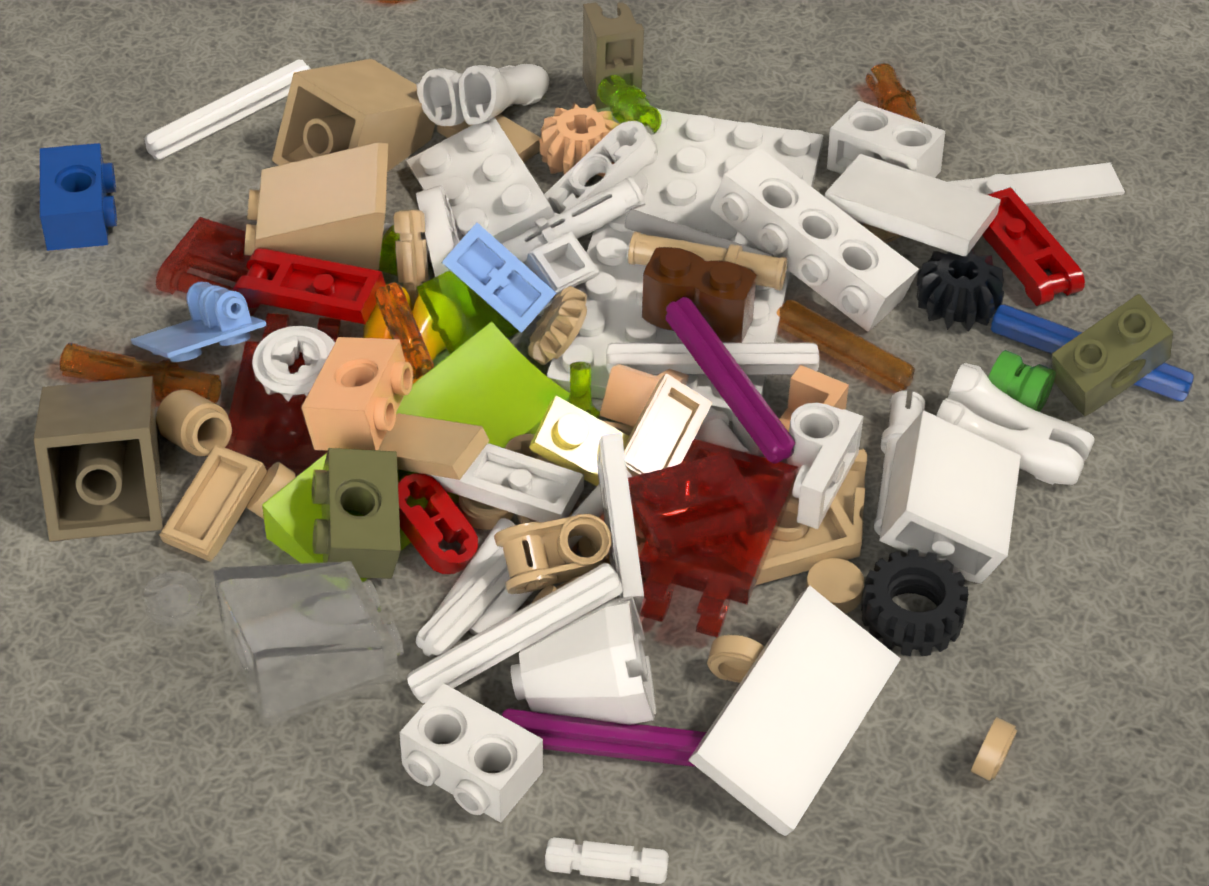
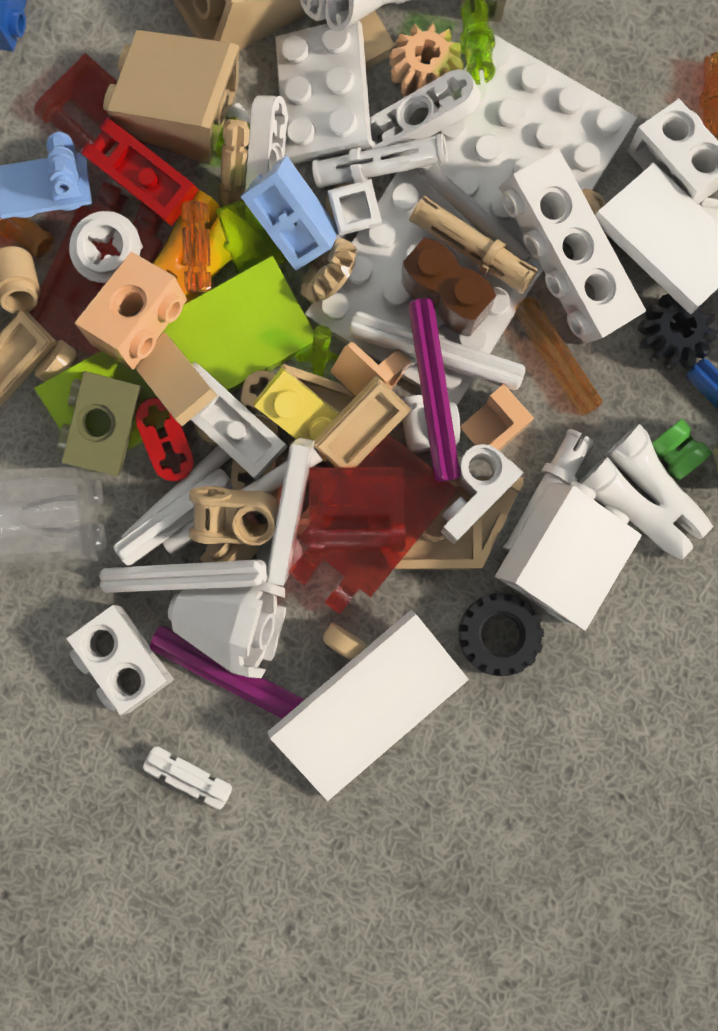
camera: 25 degrees right, 35 degrees up
(837, 582) = (449, 592): tan tile -> none
(994, 749) = (500, 788): tan tile -> none

